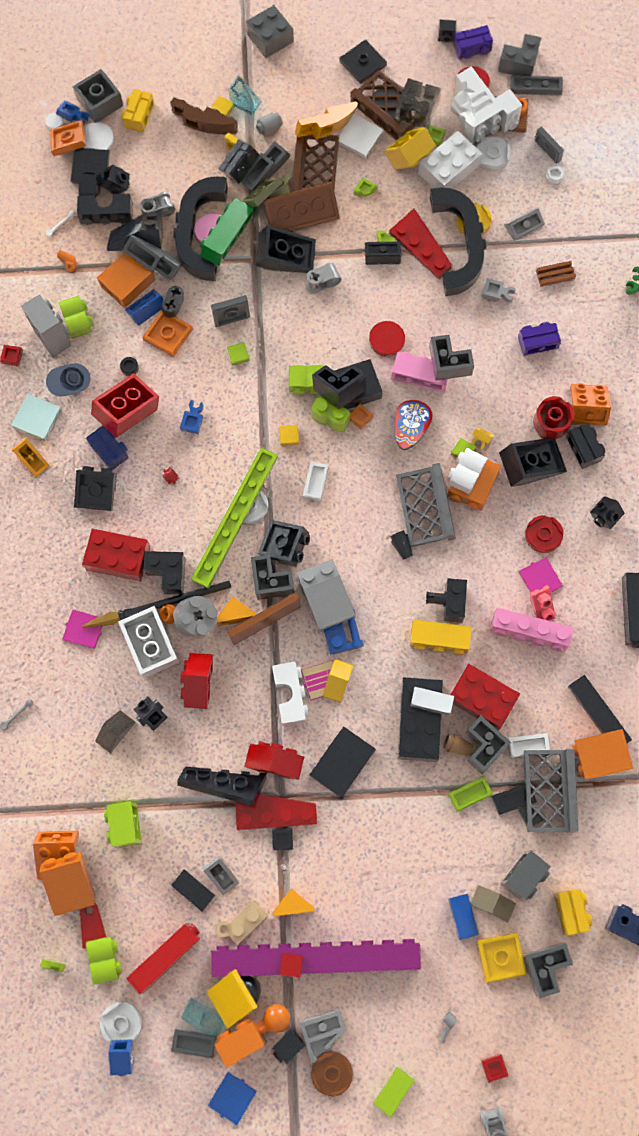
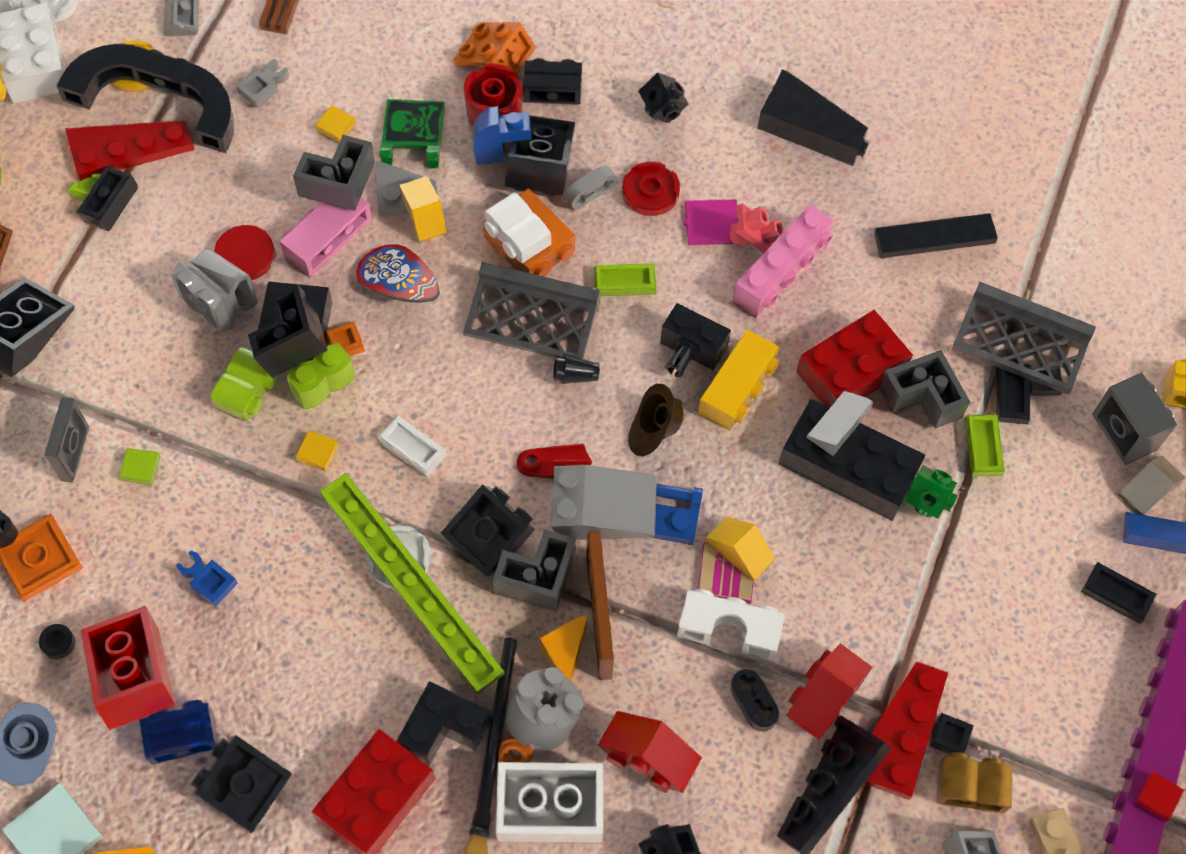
camera: 70 degrees left, 10 degrees down
(170, 476) = (284, 654): red plate -> none
(257, 727) = (761, 696): none -> black beam
(258, 861) = (974, 784): none -> pearl gold brick
(293, 904) = (1060, 761): light orange slope -> none
(323, 277) = (95, 293): light grey piece -> none
(342, 762) = (867, 597): black tile -> none
(344, 560) = (552, 456): none -> red piece
(352, 334) = (214, 288): none -> light grey piece
(391, 601) = (656, 419): none -> dark brown piece
(413, 906) = (1118, 592): none -> black tile
(420, 773) = (931, 492): none -> green brick
(458, 745) = (909, 426): medium nougat cone -> none
(460, 415) = (423, 208): none -> yellow slope
(461, 446) = (470, 230): lime tile -> none
(469, 400) = (388, 191): none -> light grey wing
(475, 546) = (625, 279): none -> lime tile
(482, 435) = (470, 195): yellow tile -> none
(493, 342) = (335, 123): none -> yellow tile
(514, 384) = (412, 126): none -> flag
(524, 499) = (590, 186): none -> light grey beam
(528, 430) = (493, 130): none -> blue brick
(529, 742) = (944, 334): white tile -> none
(539, 338) = (365, 65): dark purple brick -> none
(602, 754) = (1000, 251): orange brick -> none

